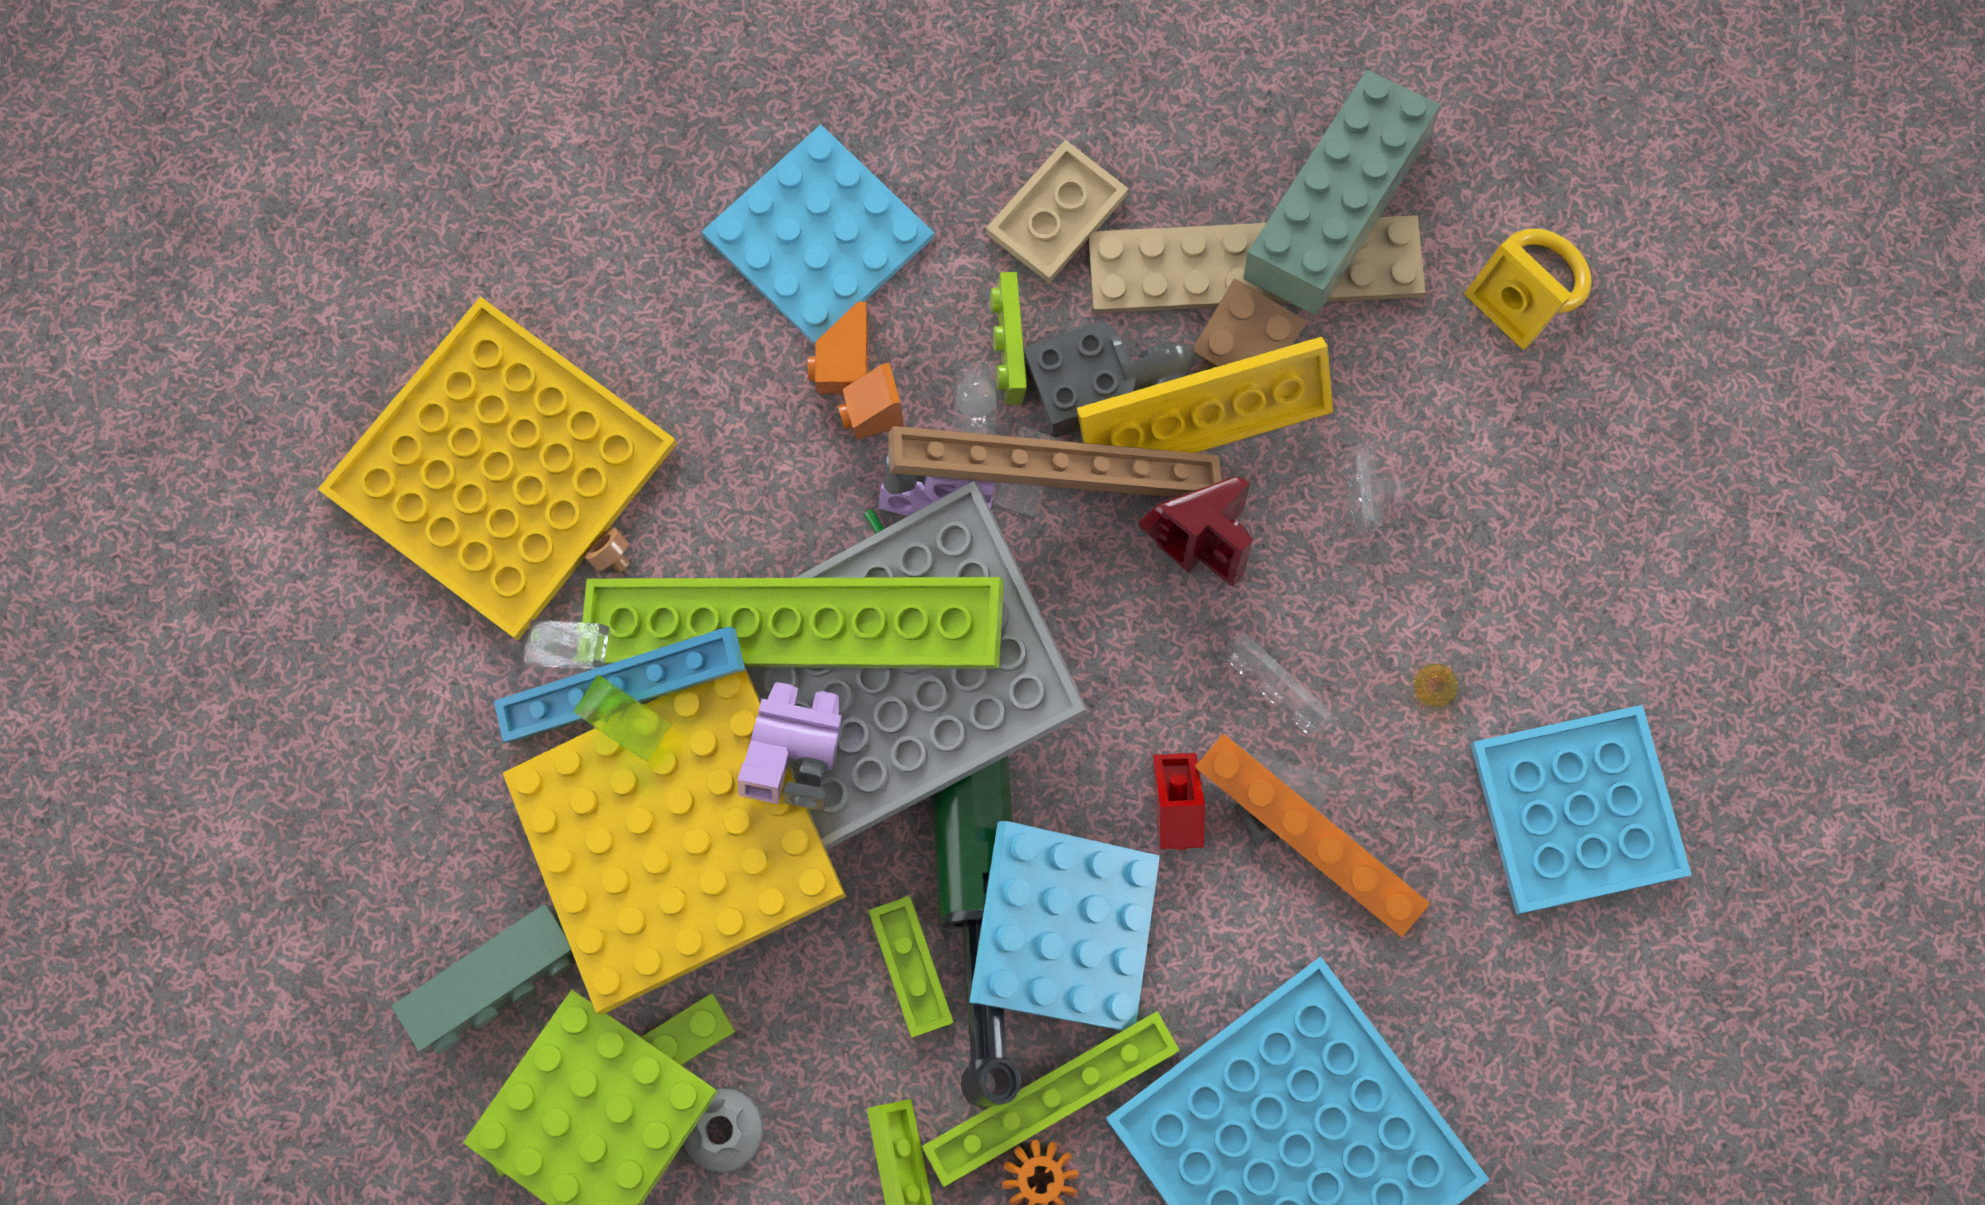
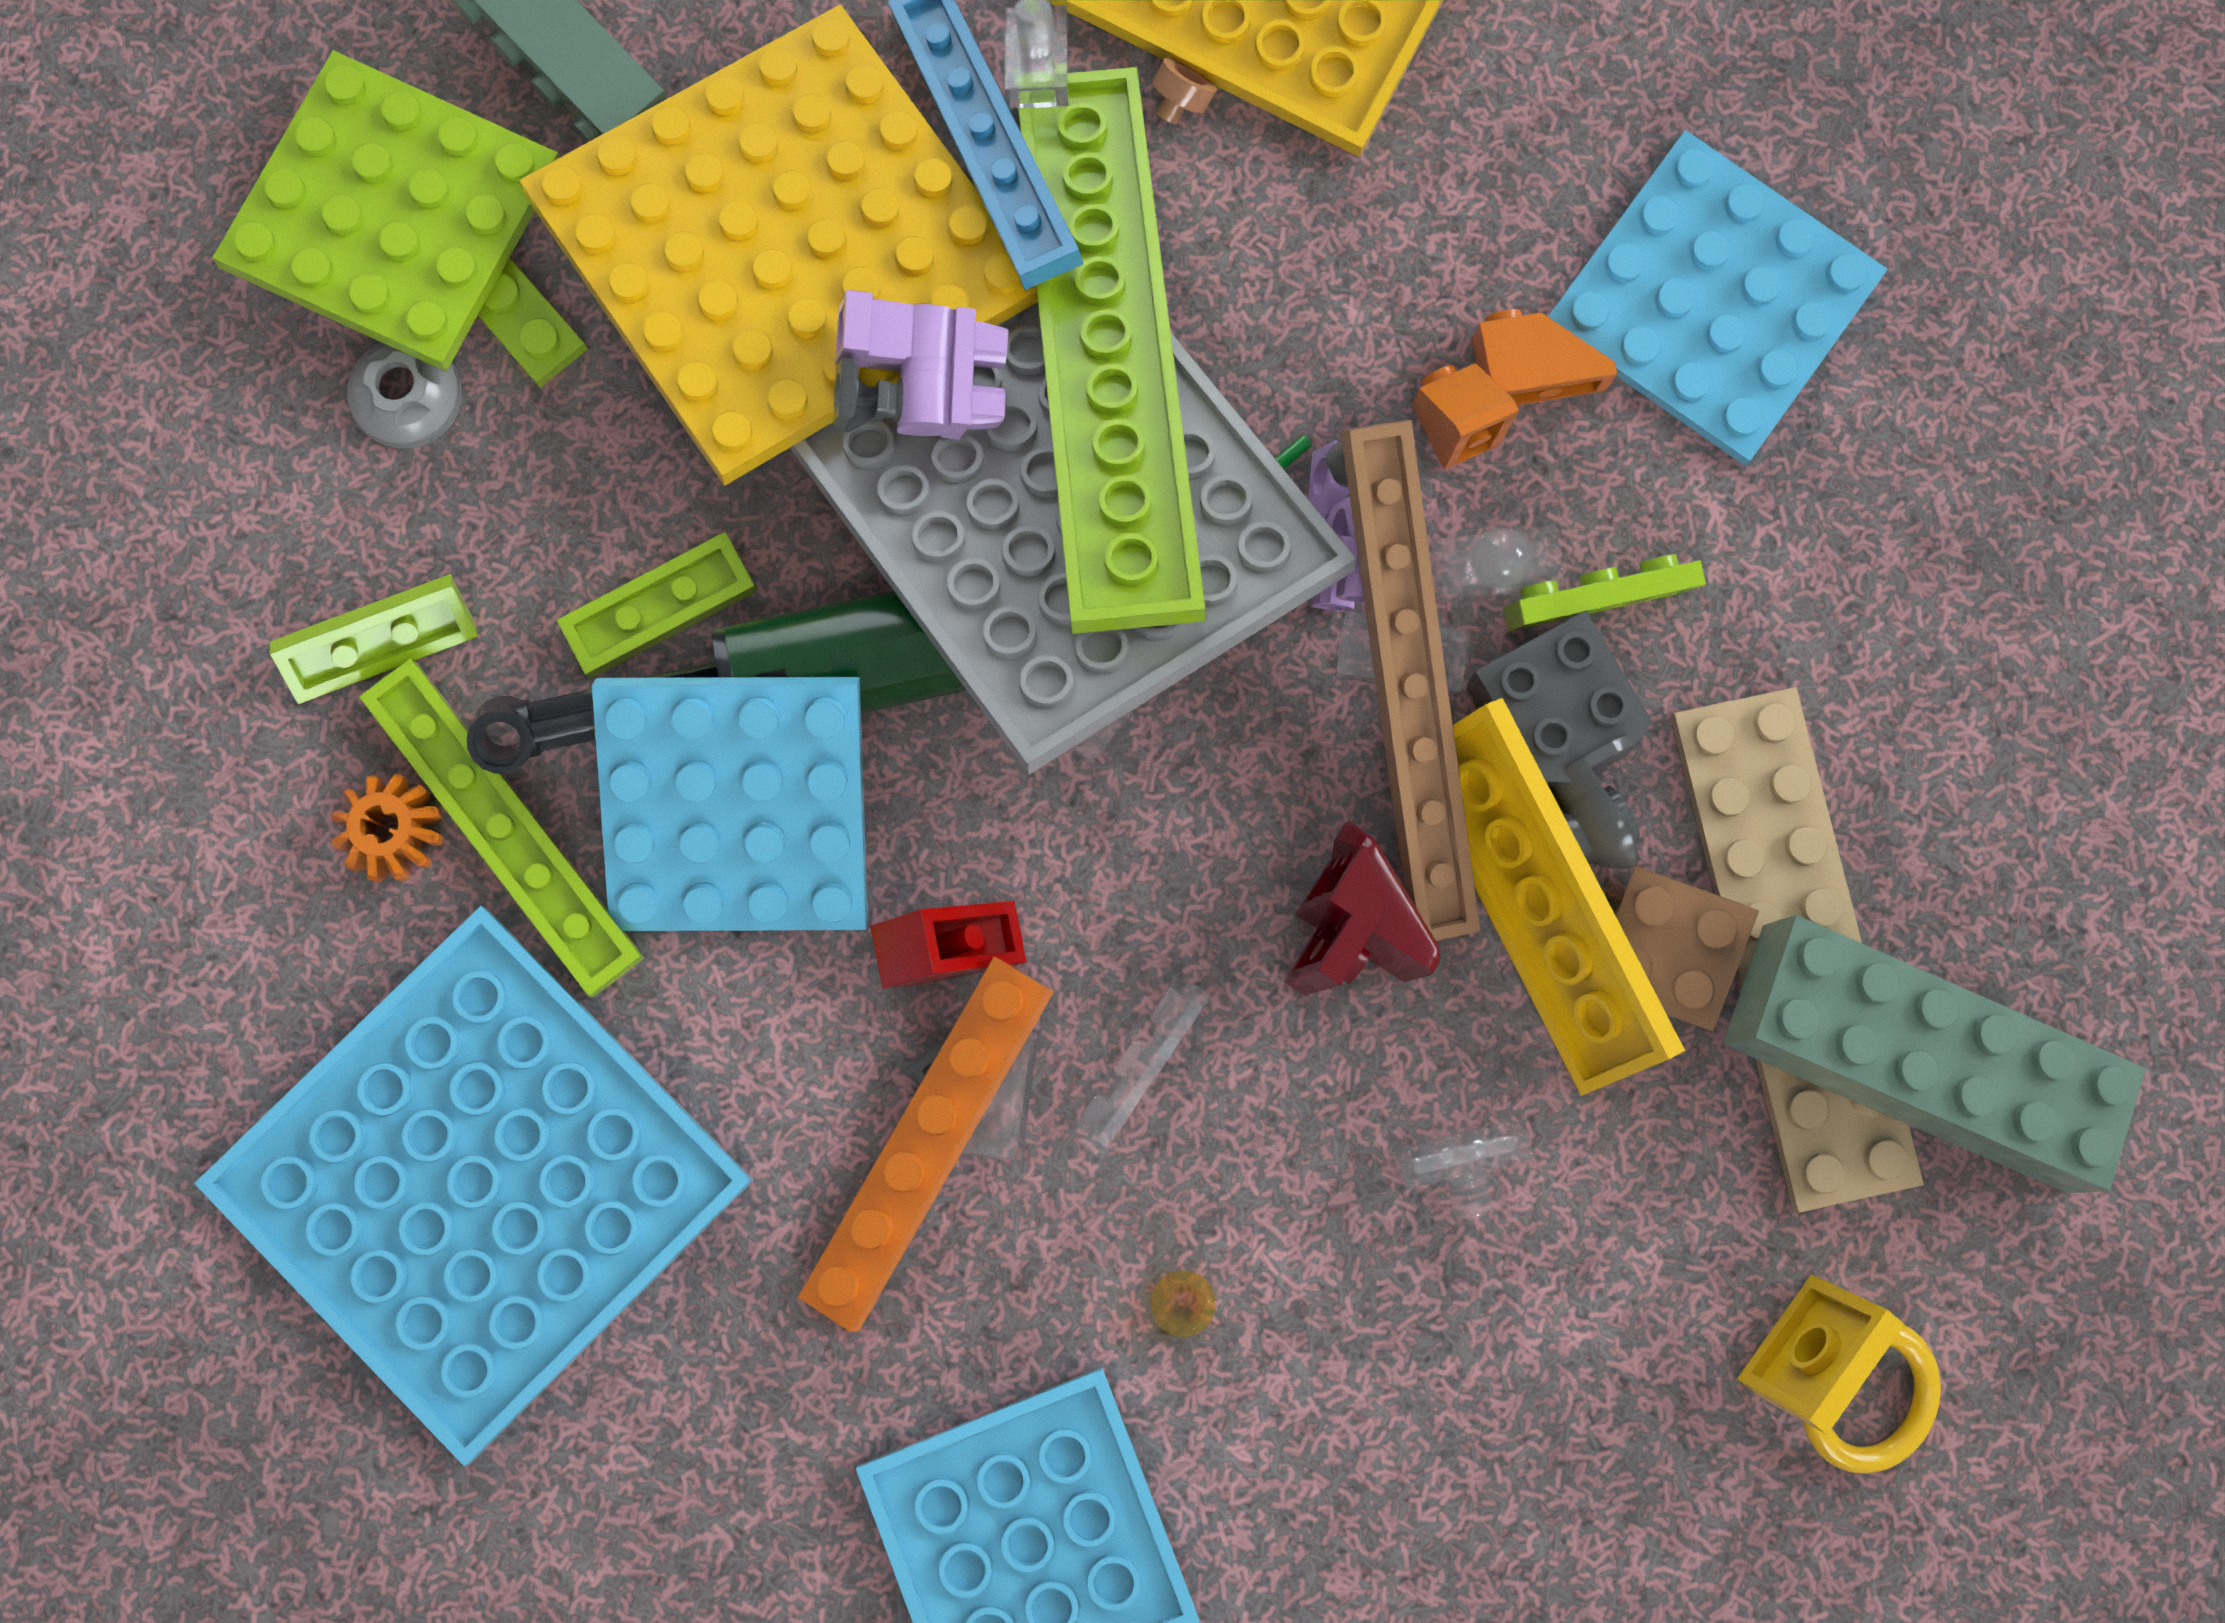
camera: 75 degrees right, 5 degrees up
(622, 717) = (927, 136): clear neon green slope -> none
(1057, 211) = (1820, 636): tan plate -> none

